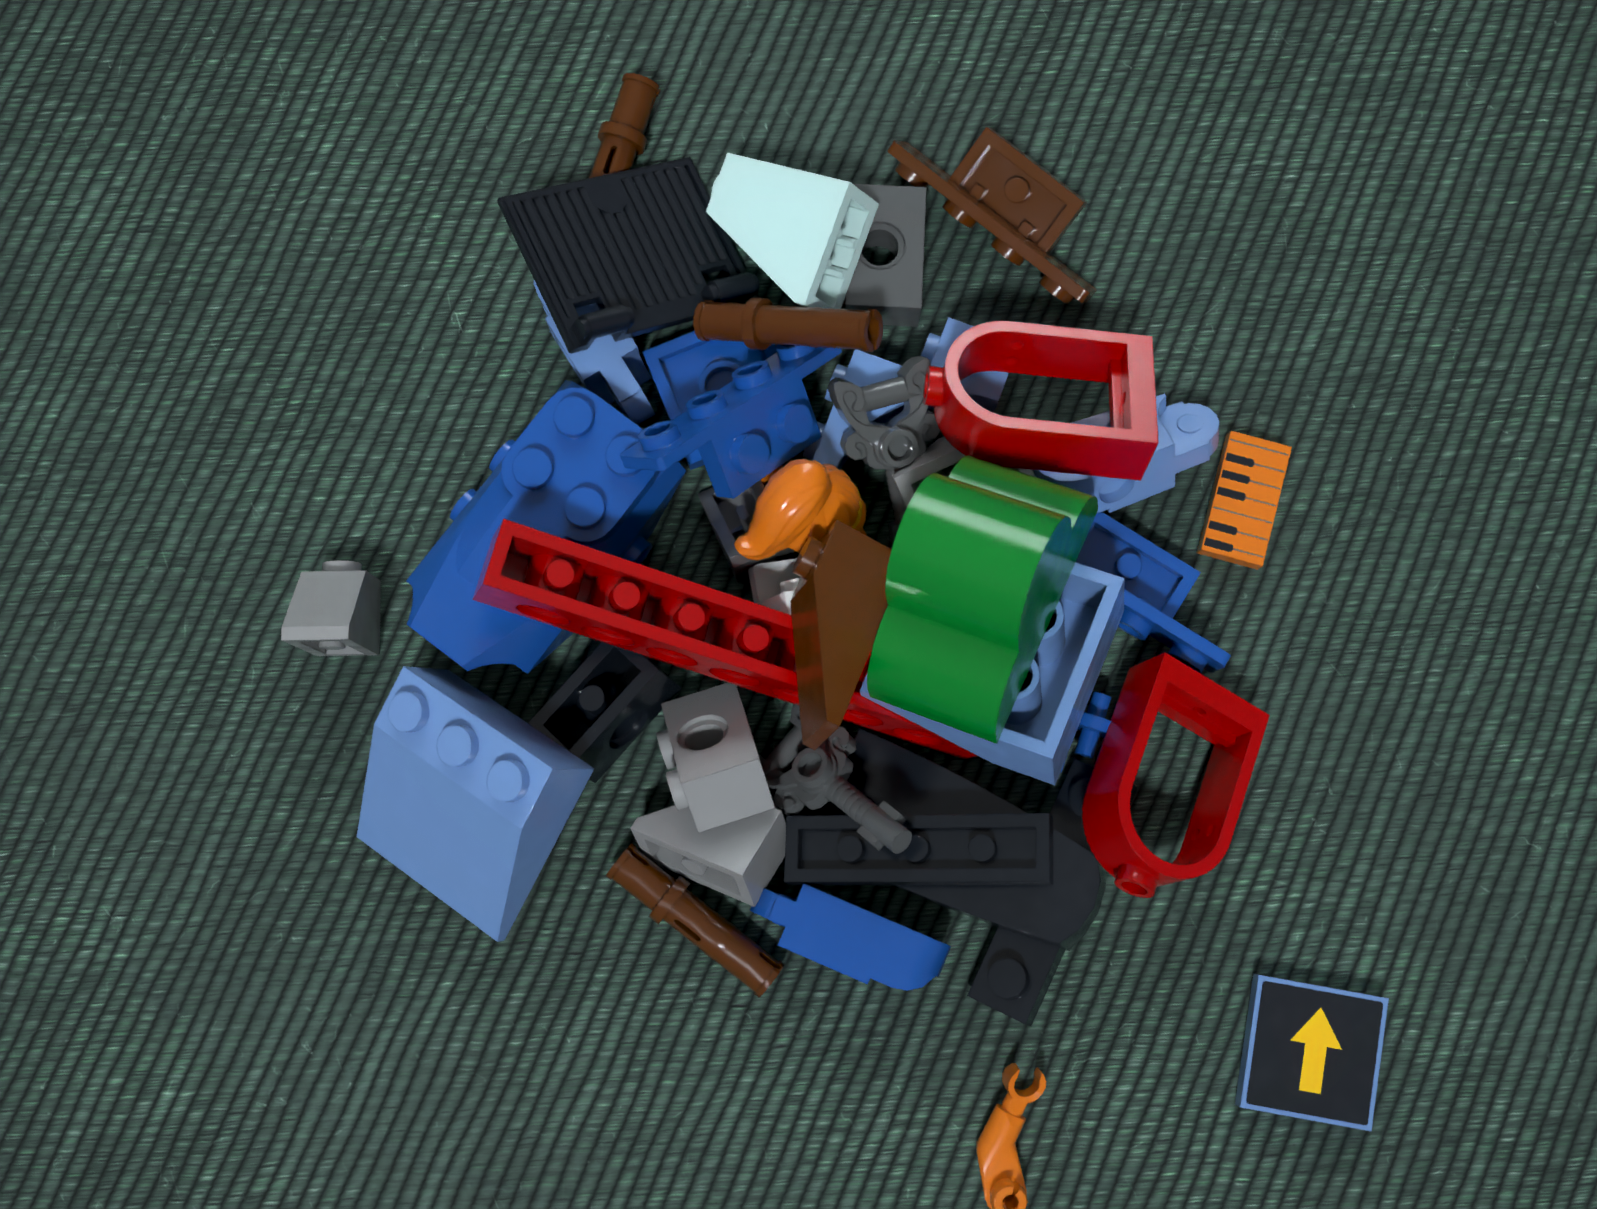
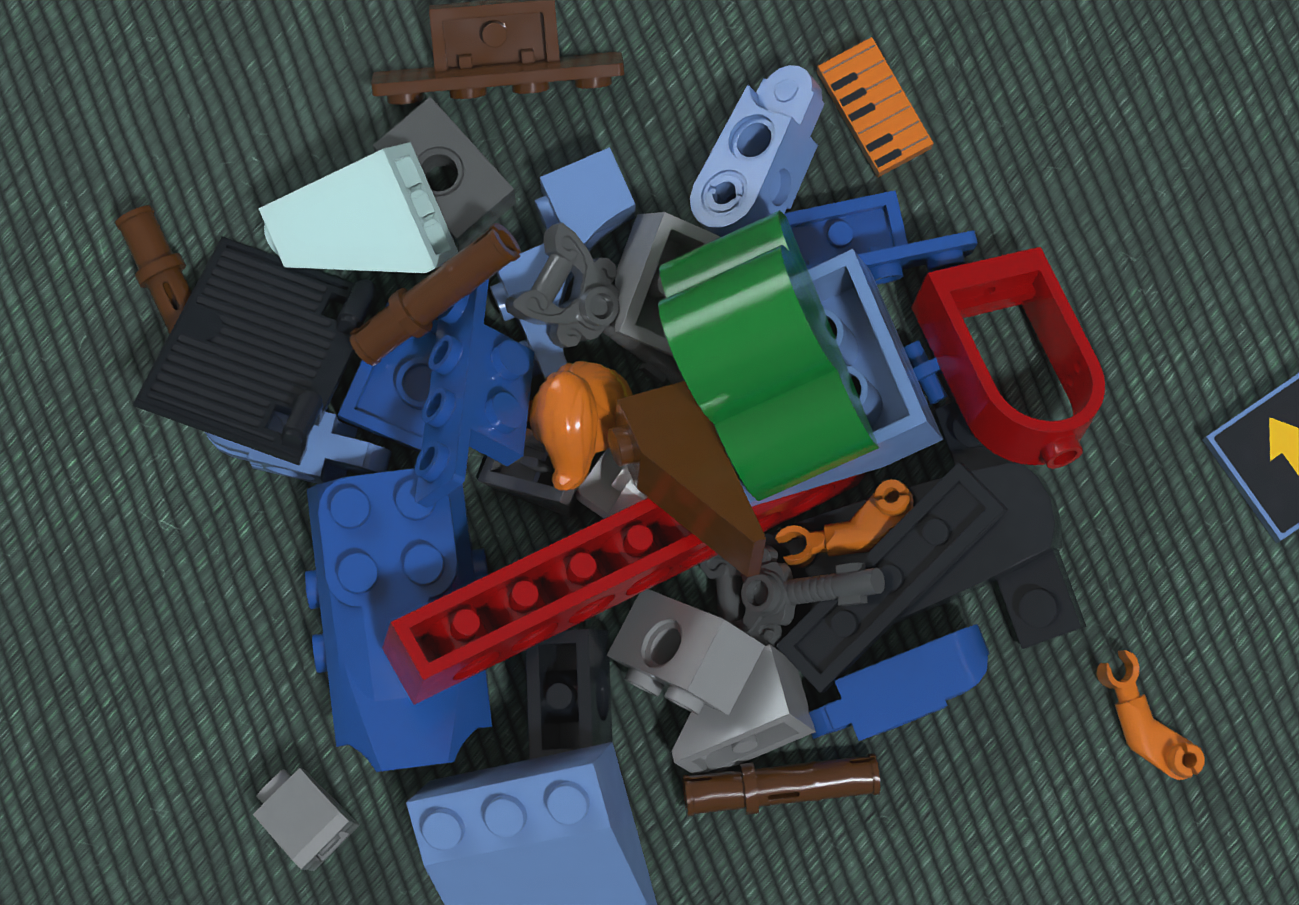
camera: 50 degrees left, 0 degrees up
(931, 795) = (859, 534): none -> orange arm
(1043, 445) = (694, 93): red window -> none

